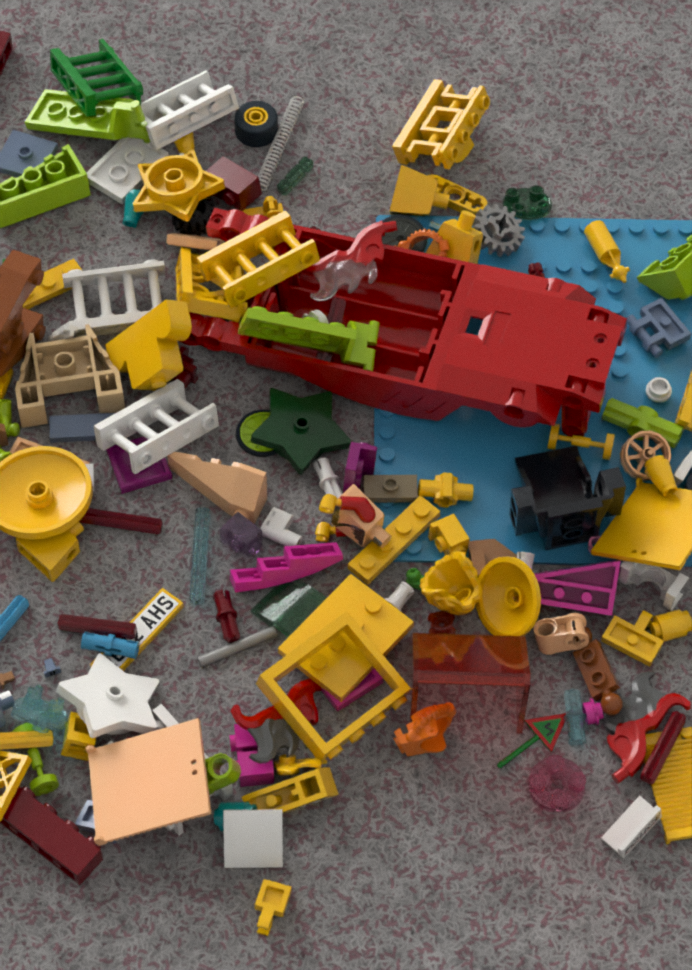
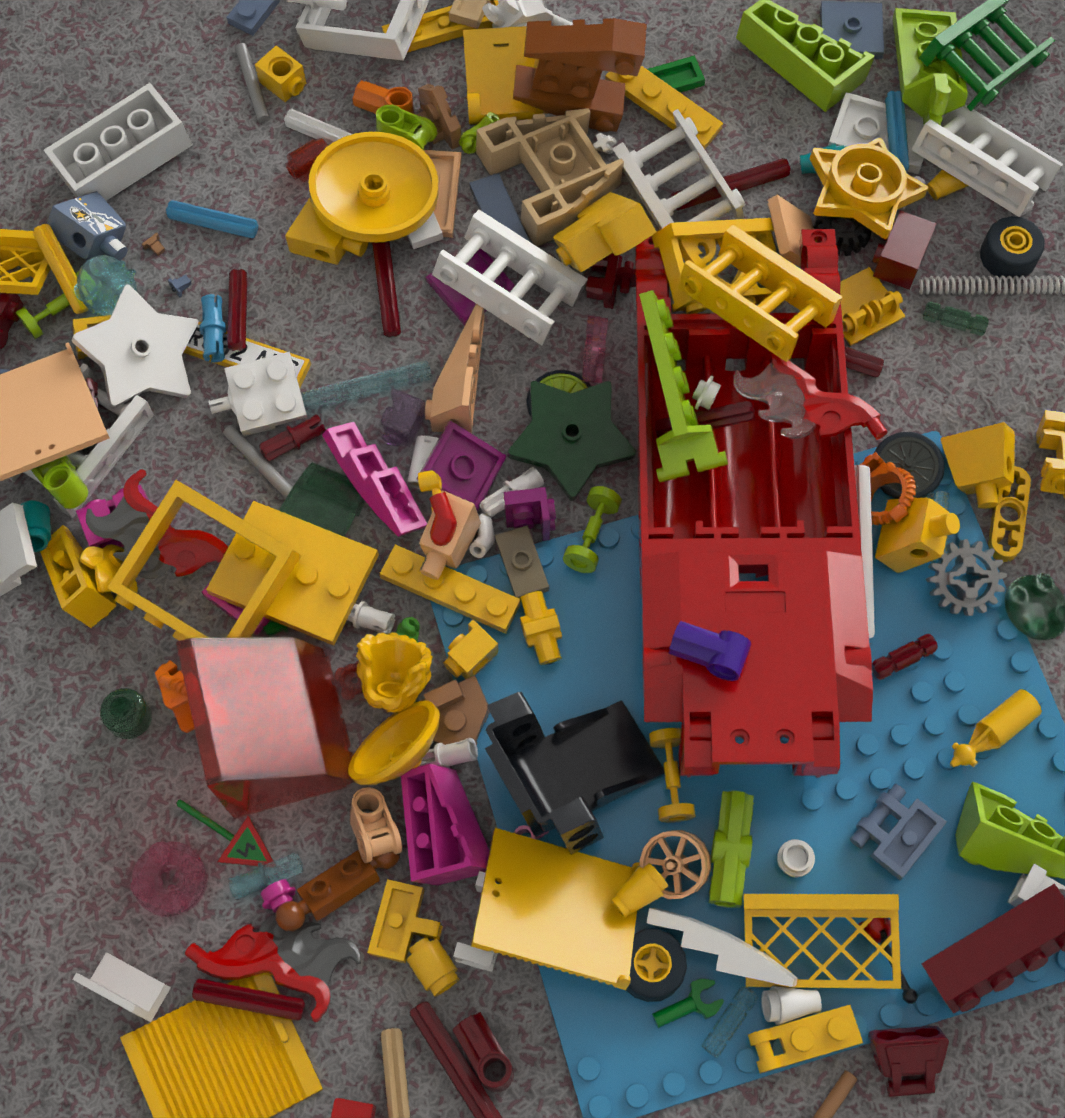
camera: 75 degrees right, 10 degrees up
(126, 258) = (744, 180): none -> dark red axle
(130, 152) = (897, 127): none -> dark azure axle
(184, 623) = (262, 394): none -> white plate
(239, 390) = (595, 349): none -> clear pink plate
(296, 506) = (464, 463): none -> magenta tile
(401, 448) = (581, 557): none -> lime wheel
(421, 779) = (125, 713): none -> clear green head
(531, 353) = (721, 653): none -> dark purple piece

